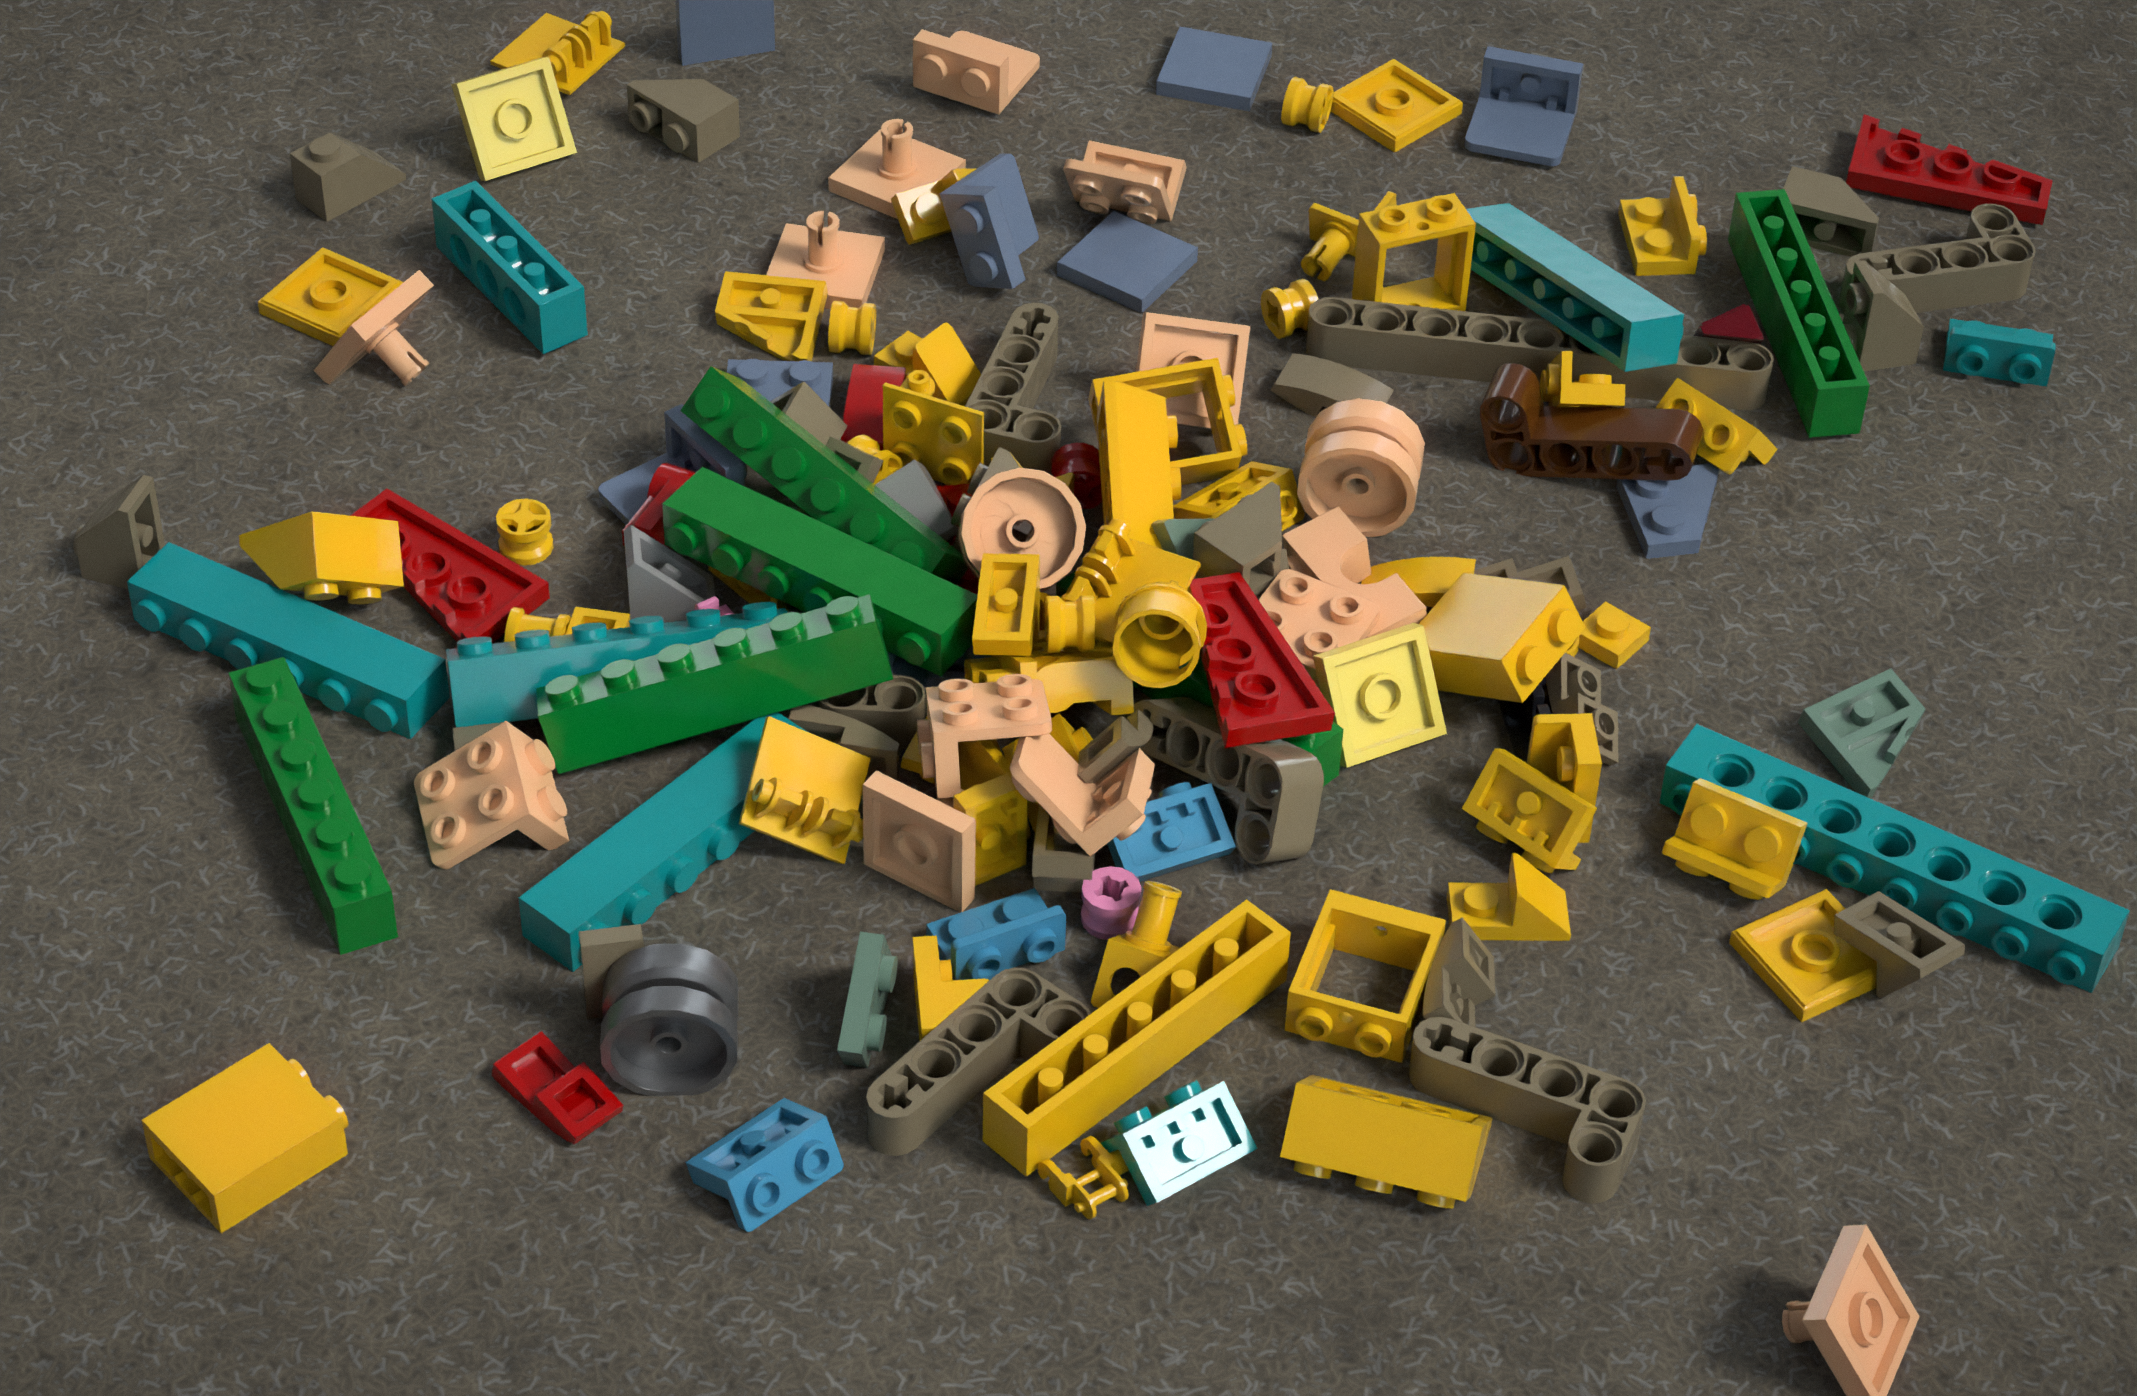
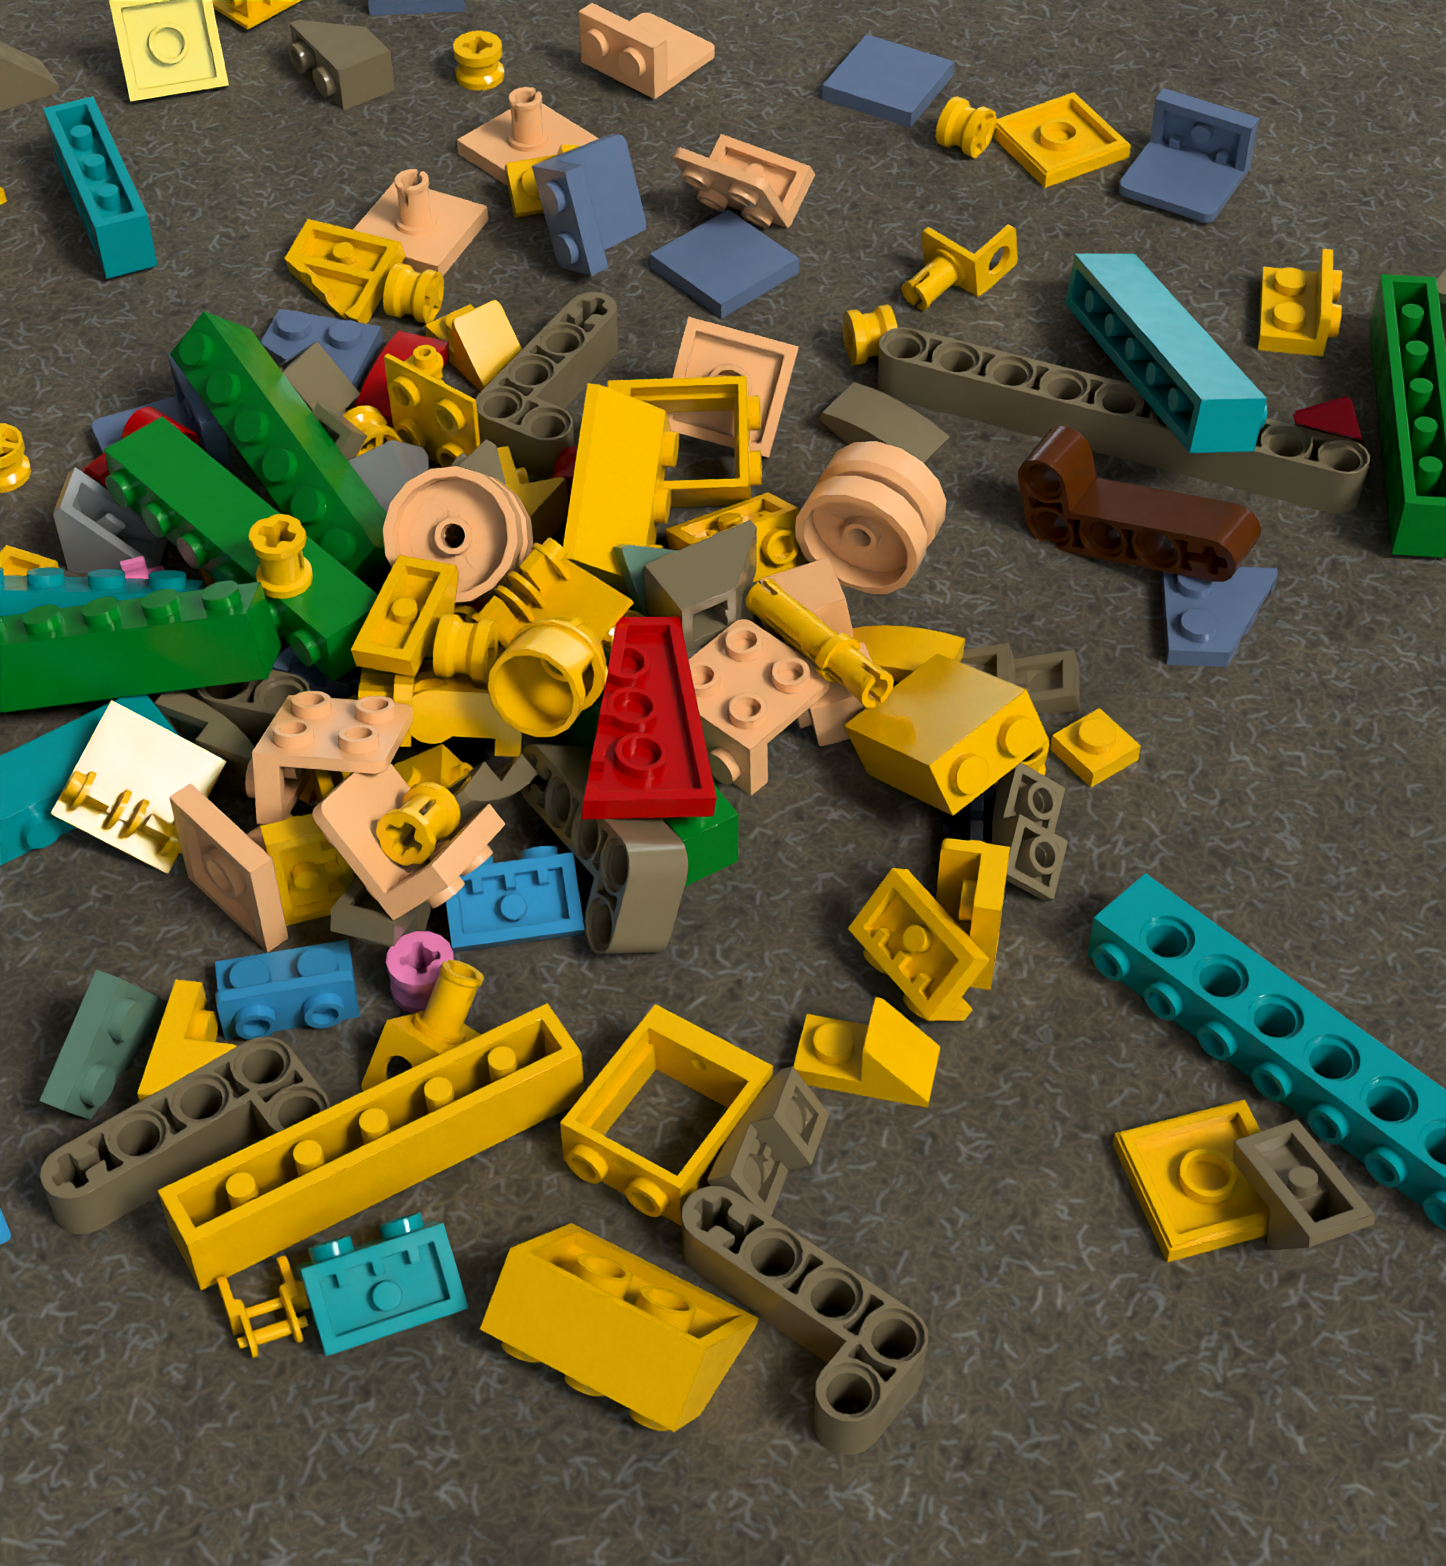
camera: 15 degrees right, 5 degrees up
(817, 98) = (478, 60): none -> yellow wheel
(881, 561) = (279, 546): none -> yellow bush
(1080, 759) = (434, 825): none -> yellow bush
(1380, 586) = (832, 652): none -> yellow pin
(1382, 693) = (799, 779): light yellow tile -> none
(1411, 223) = (1010, 259): yellow window -> none
(1589, 391) = (1151, 468): yellow bracket -> none
(1725, 437) = (1287, 537): yellow bracket -> none
(1735, 840) = (1149, 1023): yellow bracket -> none
(1864, 728) = (1350, 908): sand green wing -> none

